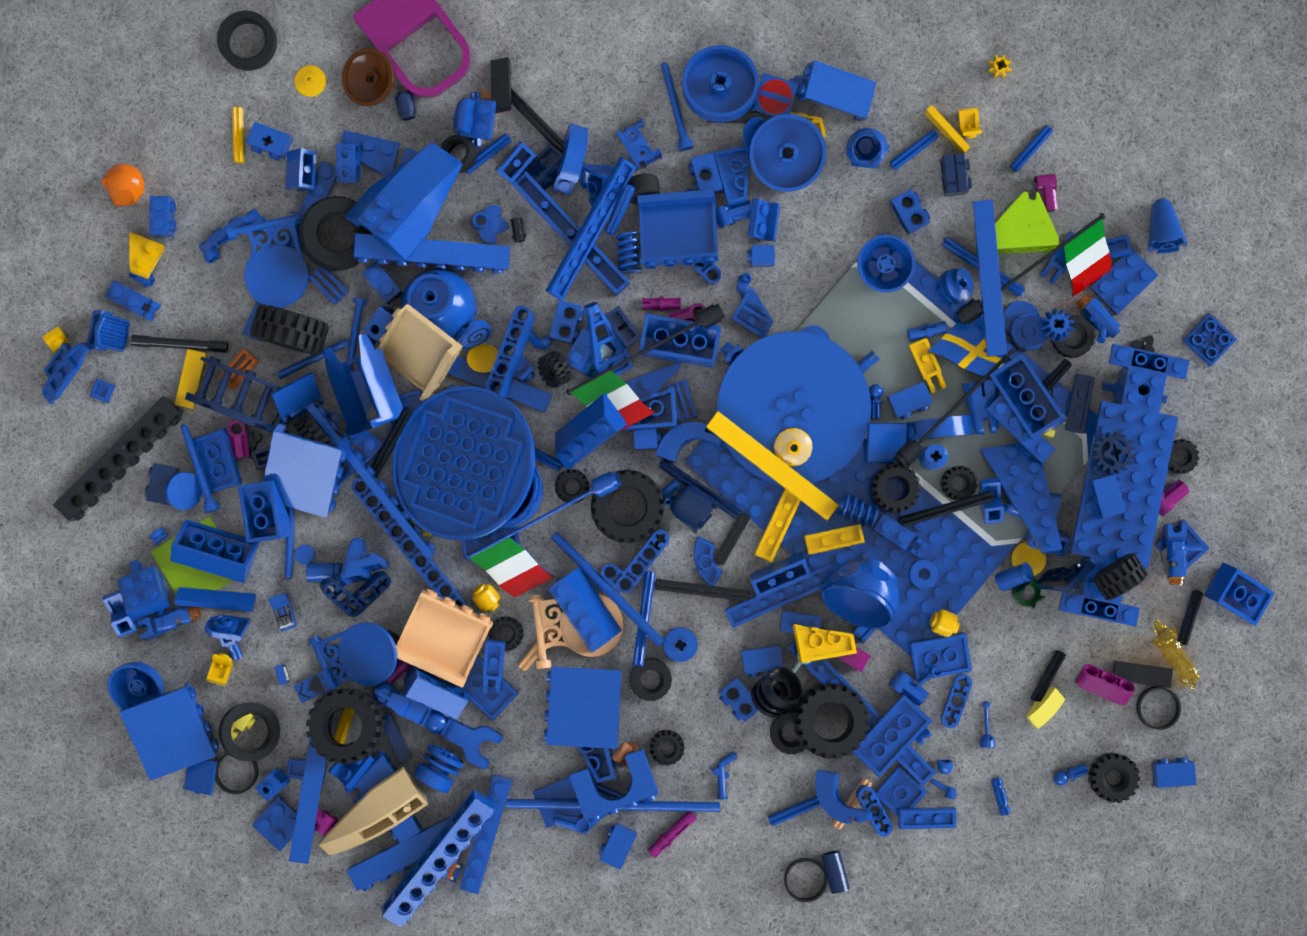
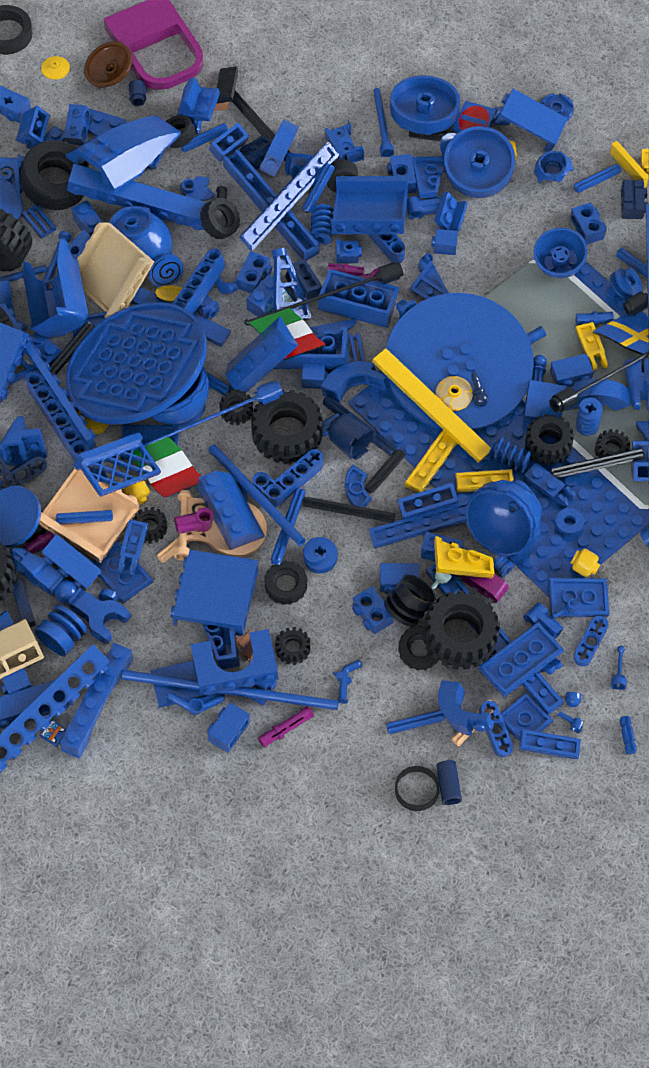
camera: 10 degrees right, 25 degrees down
(440, 643) = (84, 517): none -> blue axle
(450, 578) = (108, 453): none -> blue fence
(478, 719) = (107, 594): none -> blue tile
(507, 262) = (230, 213): none -> black tyre
(548, 634) = (193, 521): none -> magenta piece
(554, 369) = (236, 305): black tyre -> none
(655, 286) = (347, 251): none -> blue brick
(820, 448) = (480, 398): none -> dark blue bar
(862, 67) = (564, 106): none -> blue tile

